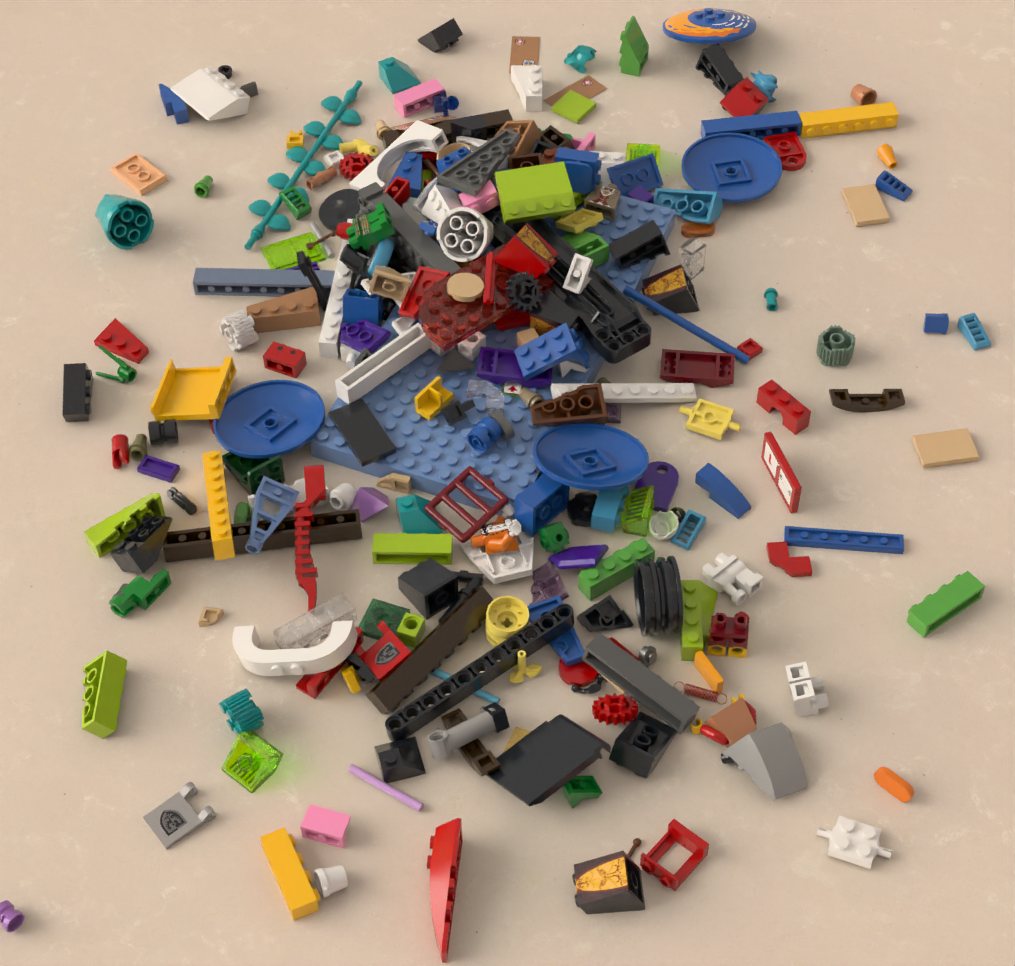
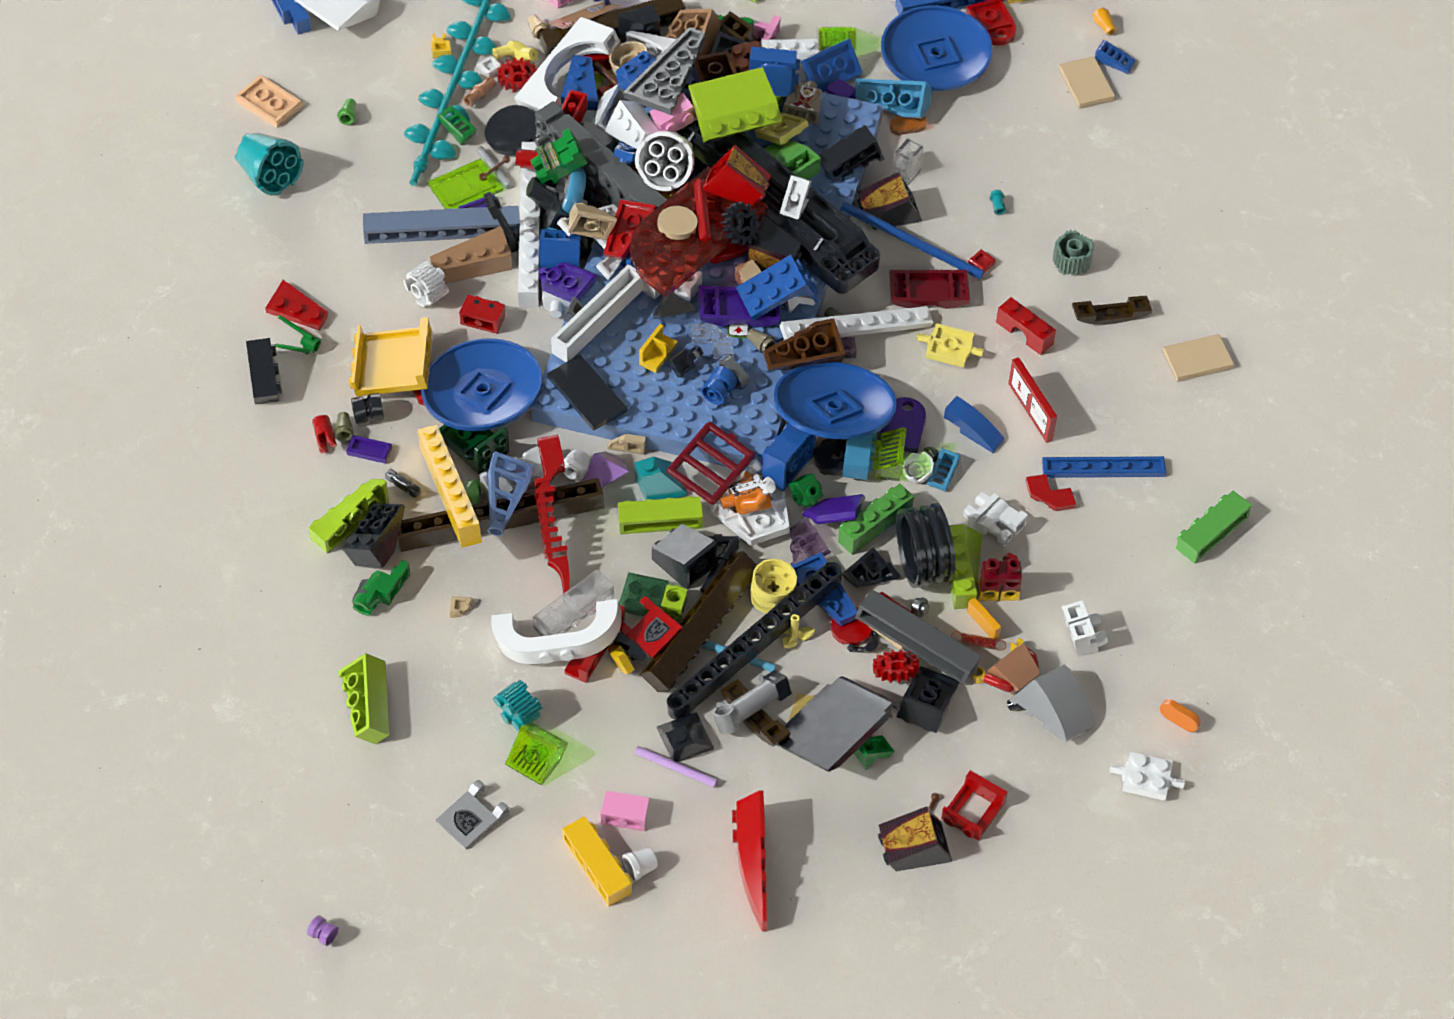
camera: 10 degrees left, 5 degrees up
(936, 323) = (1175, 217): blue tile -> none
(970, 321) = (1213, 212): dark azure slope -> none

